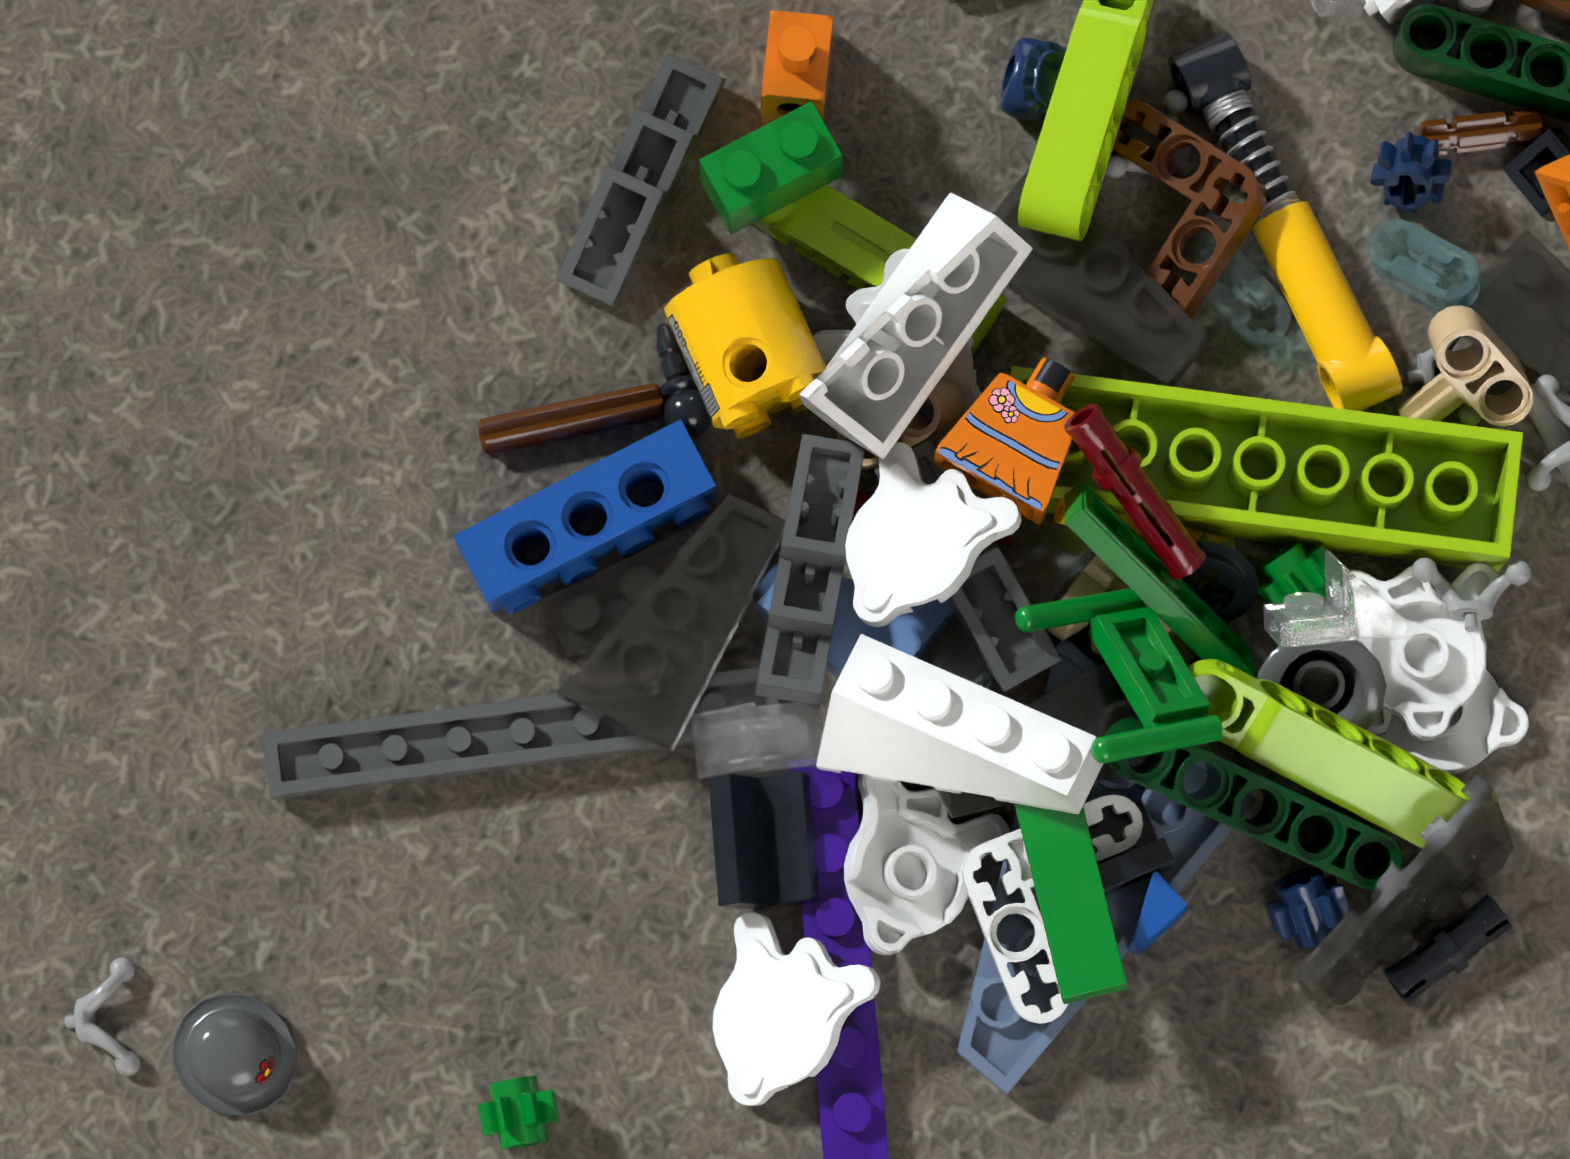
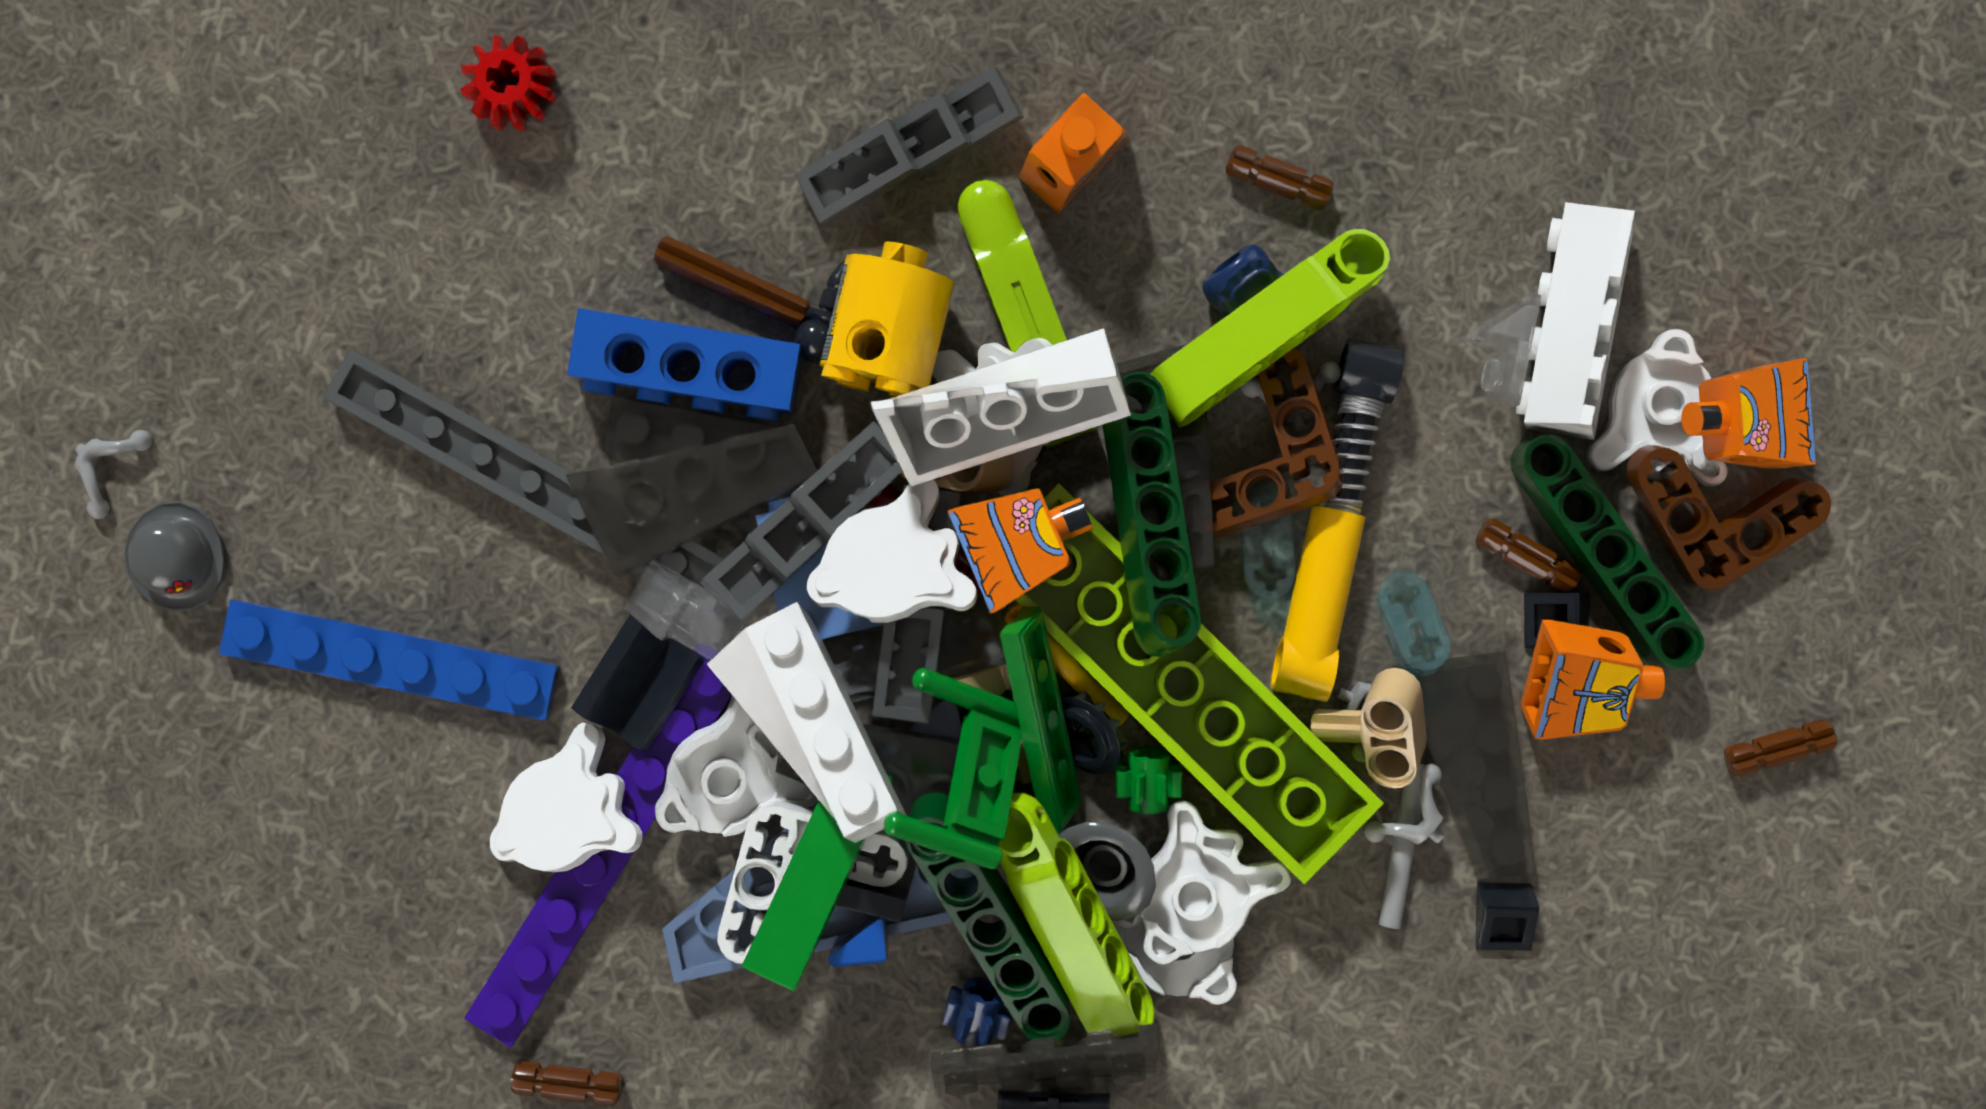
camera: 30 degrees right, 10 degrees up
(209, 384) = (514, 100): none -> red gear
(509, 999) = (389, 659): none -> blue plate
(518, 1112) = (331, 745): green gear -> none
(771, 168) = (995, 209): green brick -> none
(1093, 436) = (1070, 623): dark red pin -> none
(1126, 355) = (1142, 540): none -> dark green beam
(1346, 614) = (1156, 839): clear slope -> none
(1411, 172) = (1455, 550): dark blue gear -> none
(1470, 611) = (1239, 846): light grey piece -> none

